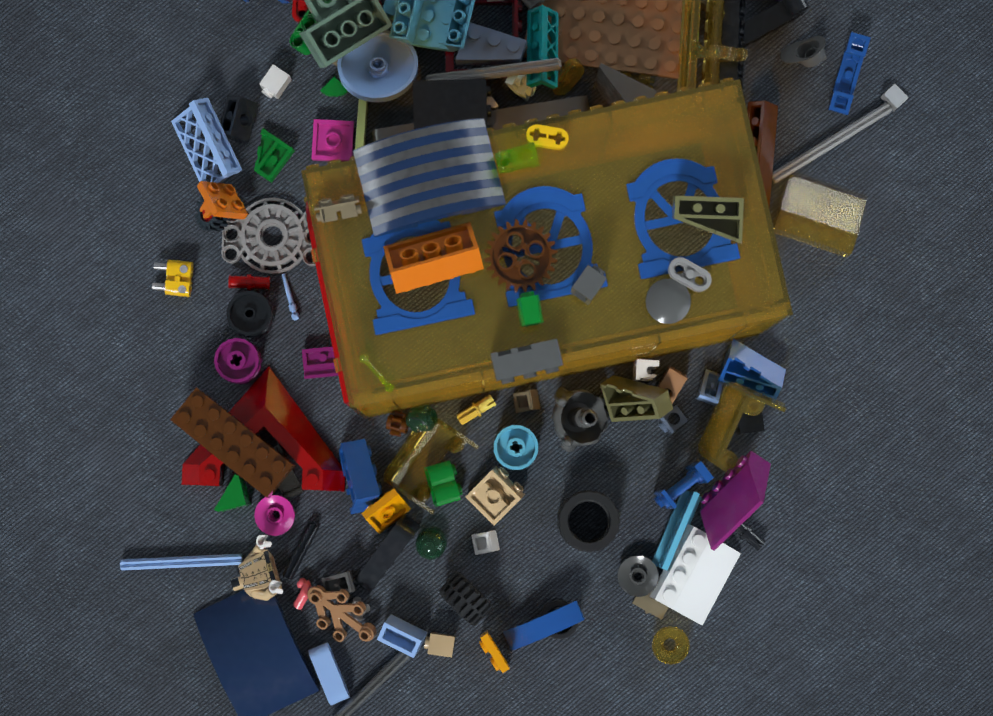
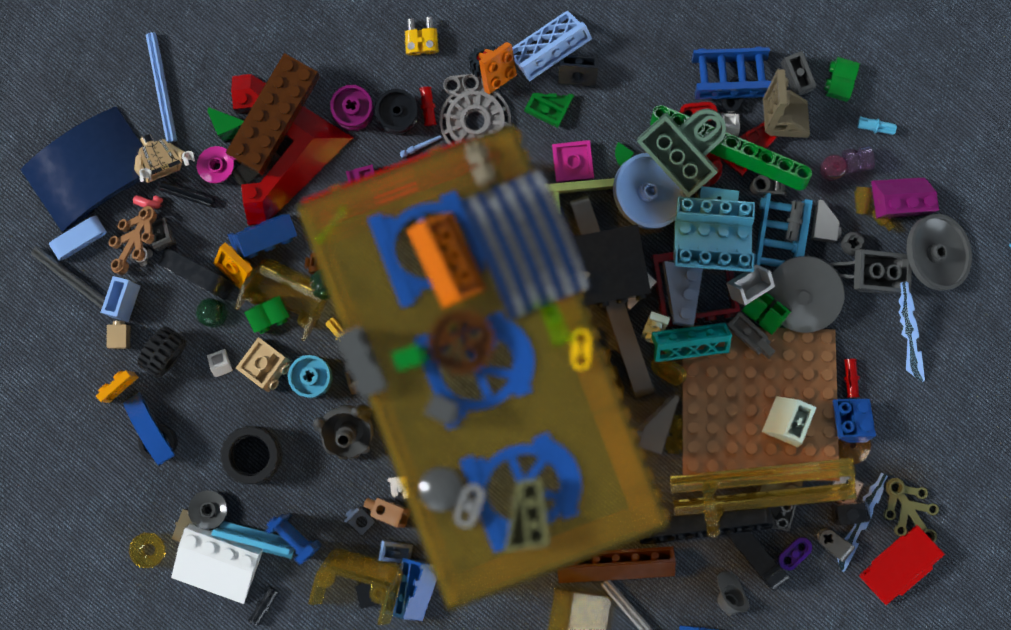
camera: 80 degrees right, 0 degrees up
(275, 82) = (618, 98): white brick -> none
(500, 71) = (659, 301): light grey axle -> none
(634, 400) = (369, 480): olive wedge -> none
(734, 498) = (288, 589): magenta slope -> none

